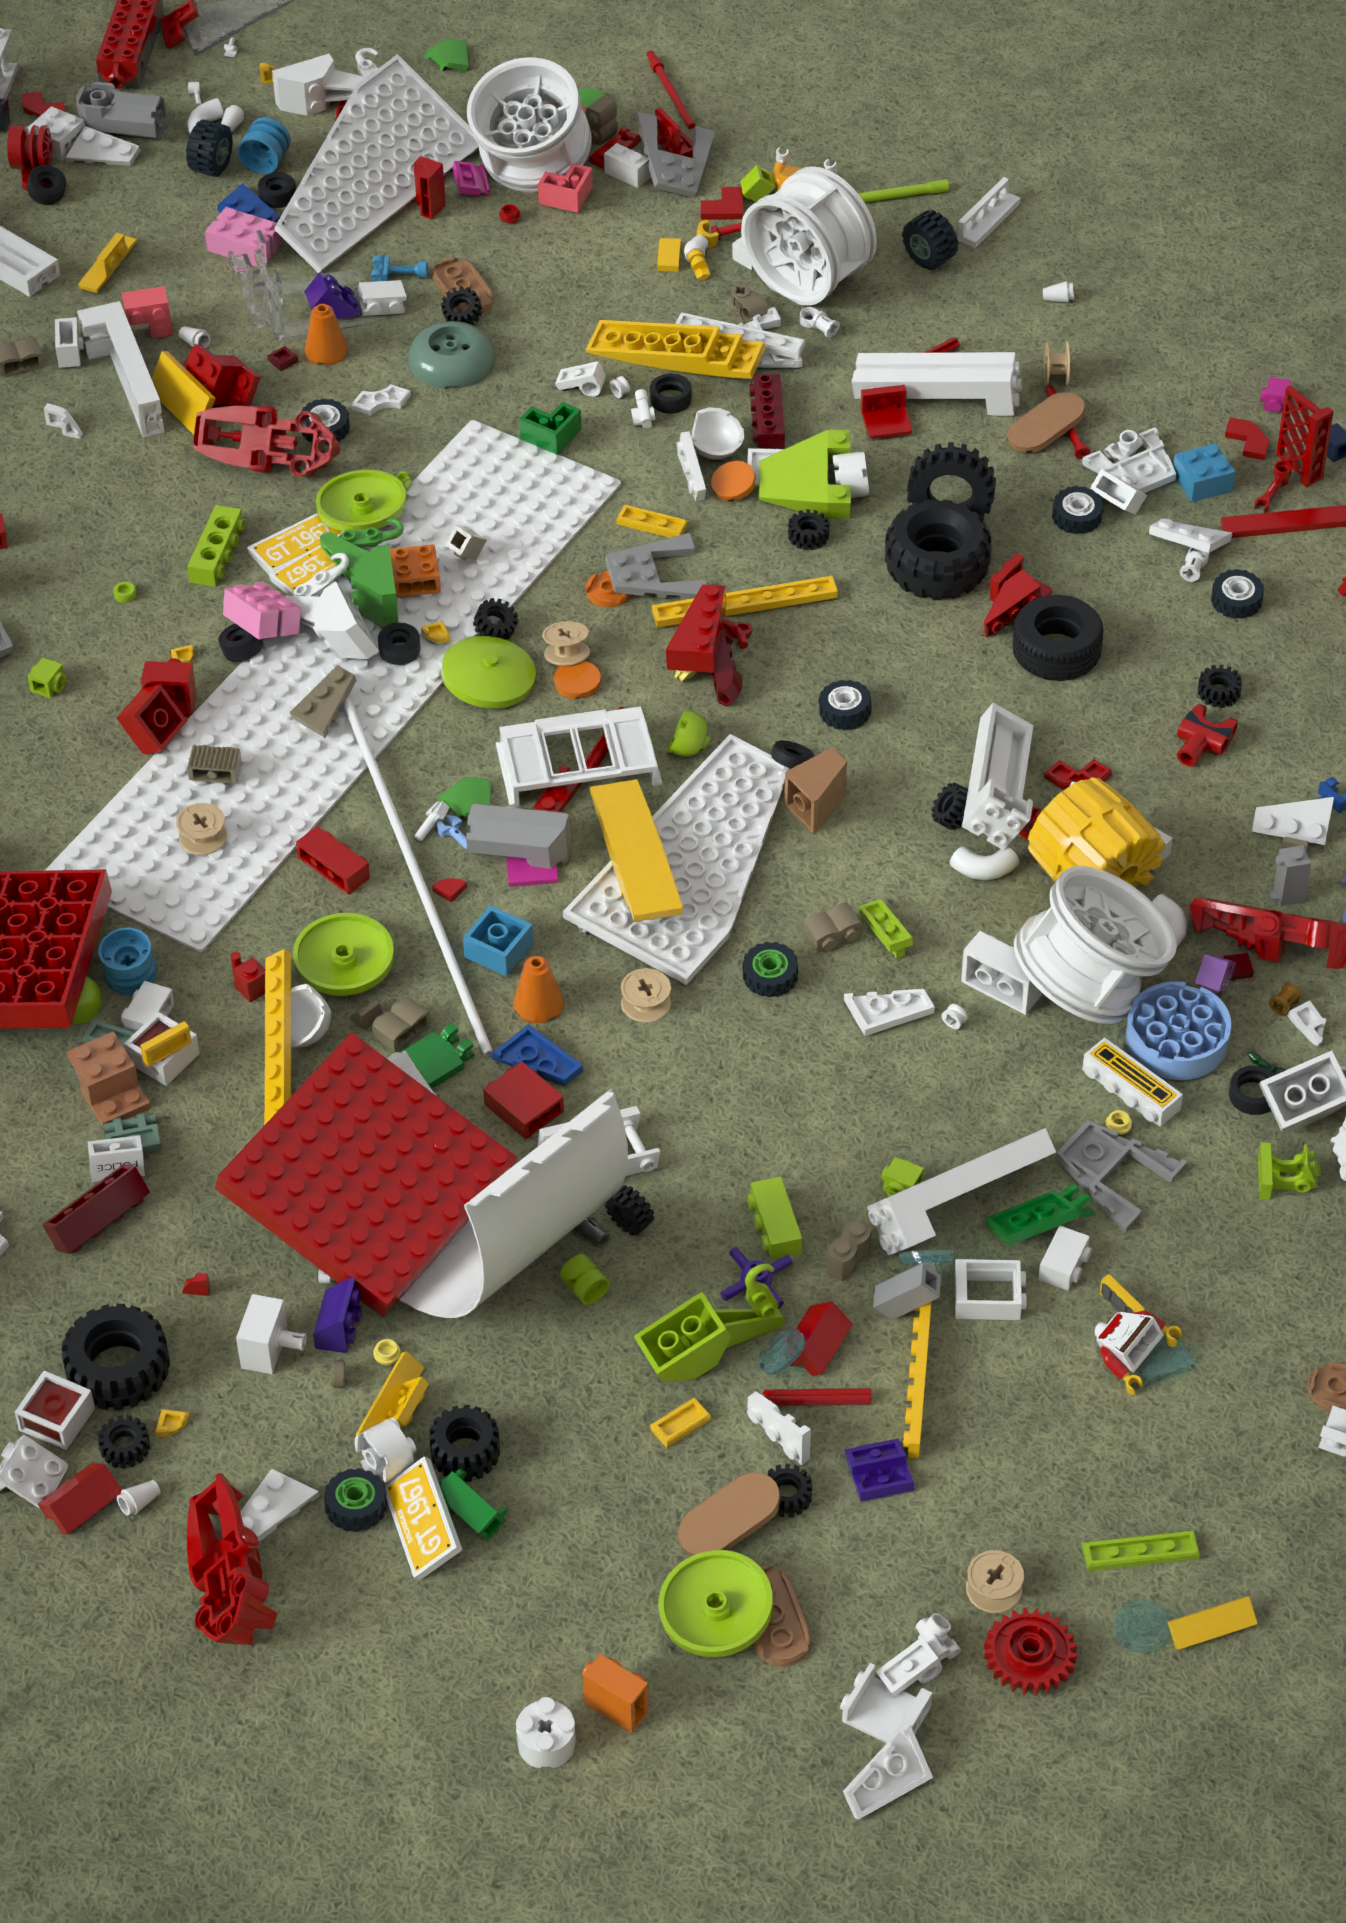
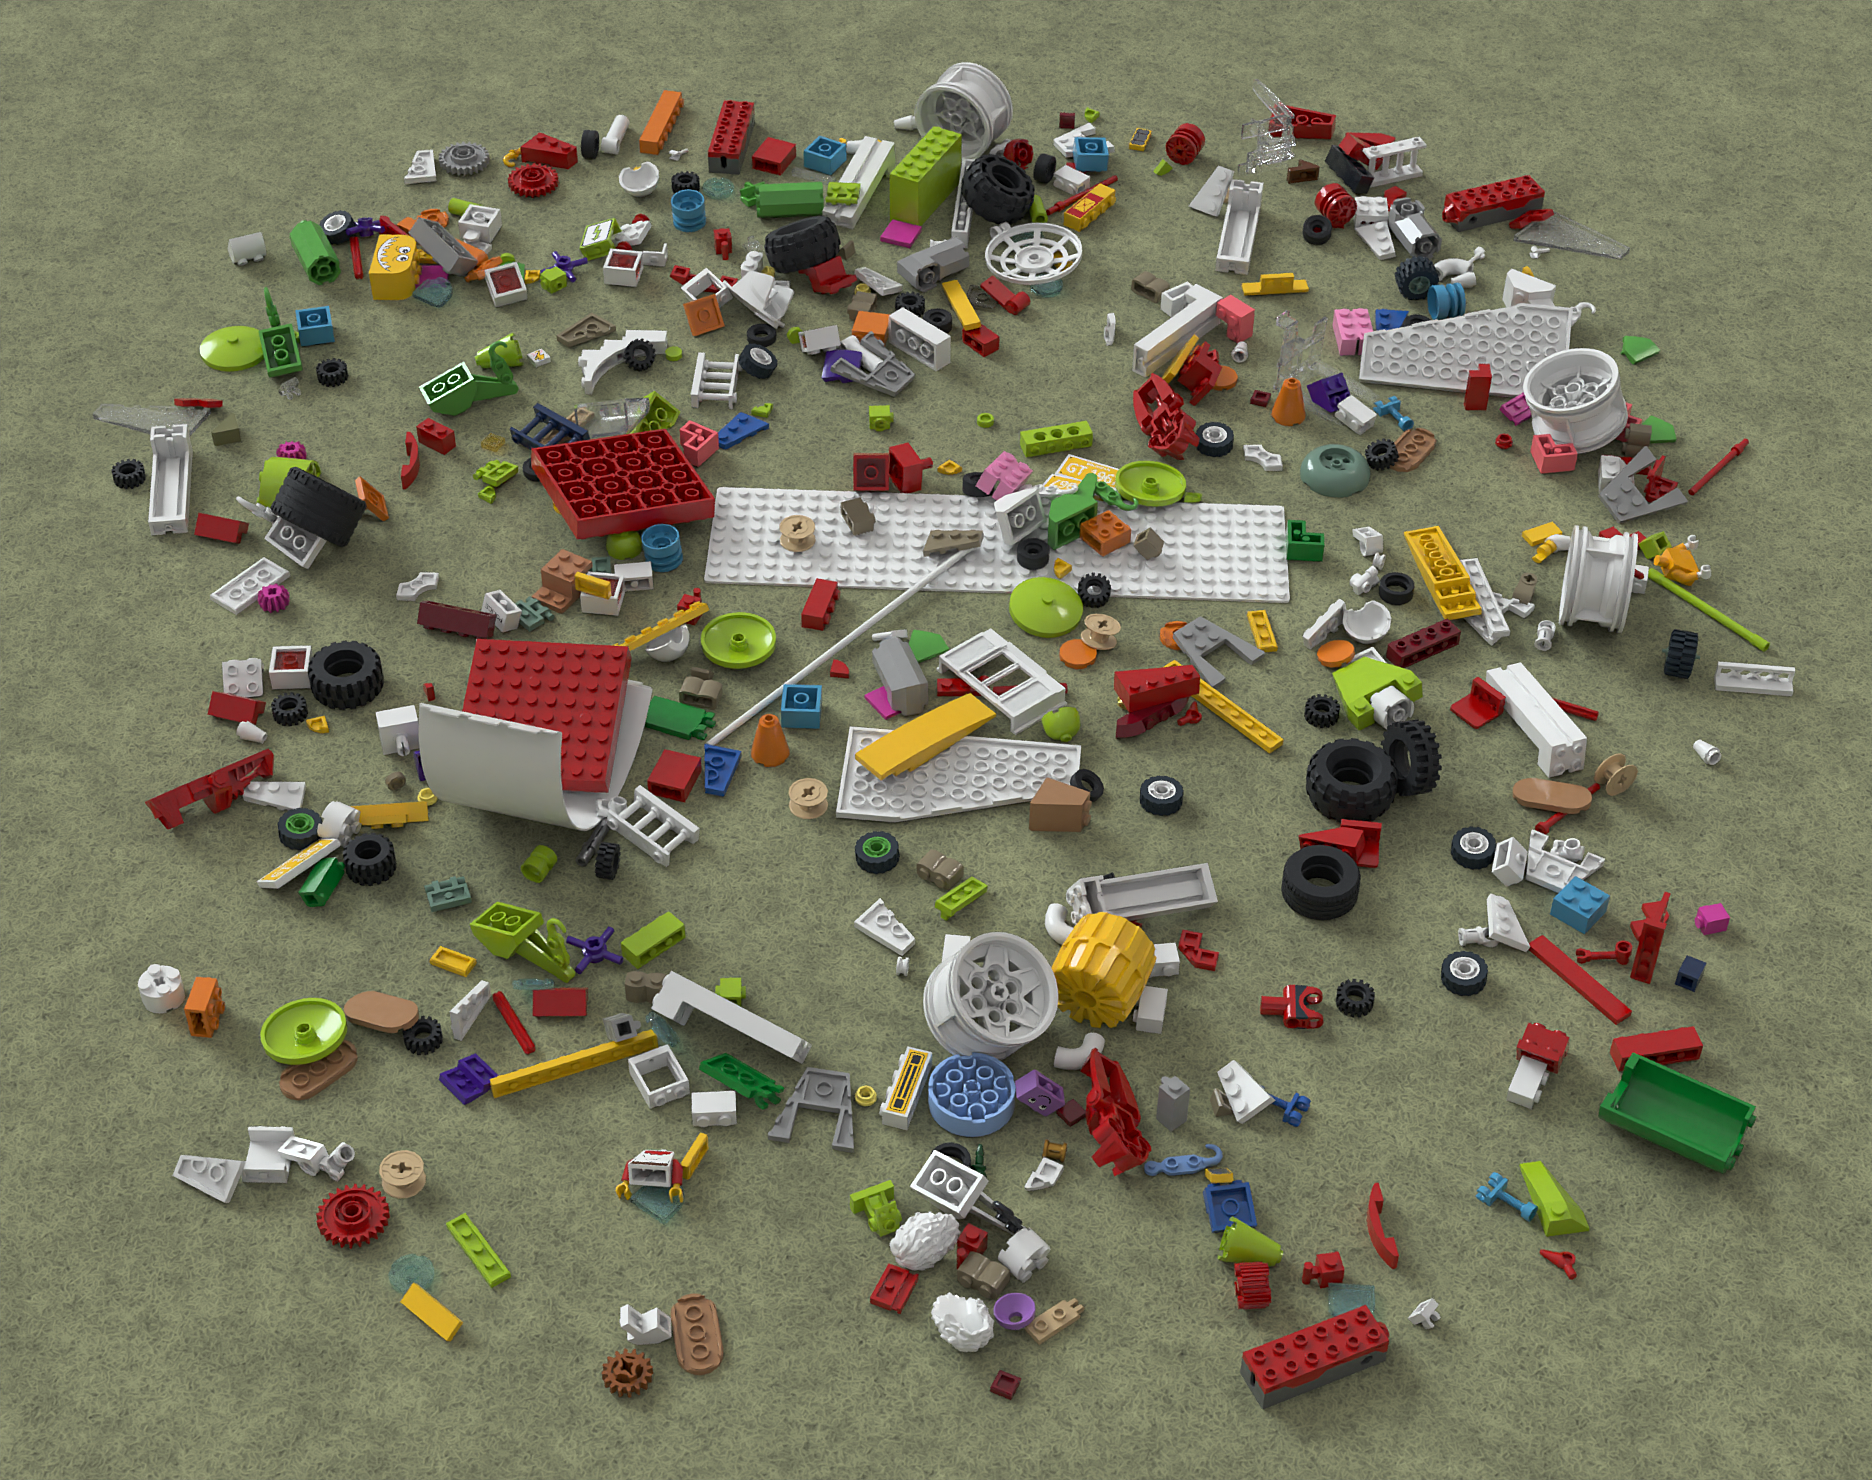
camera: 60 degrees right, 5 degrees down
(575, 1390) = (447, 893): none -> sand green plate

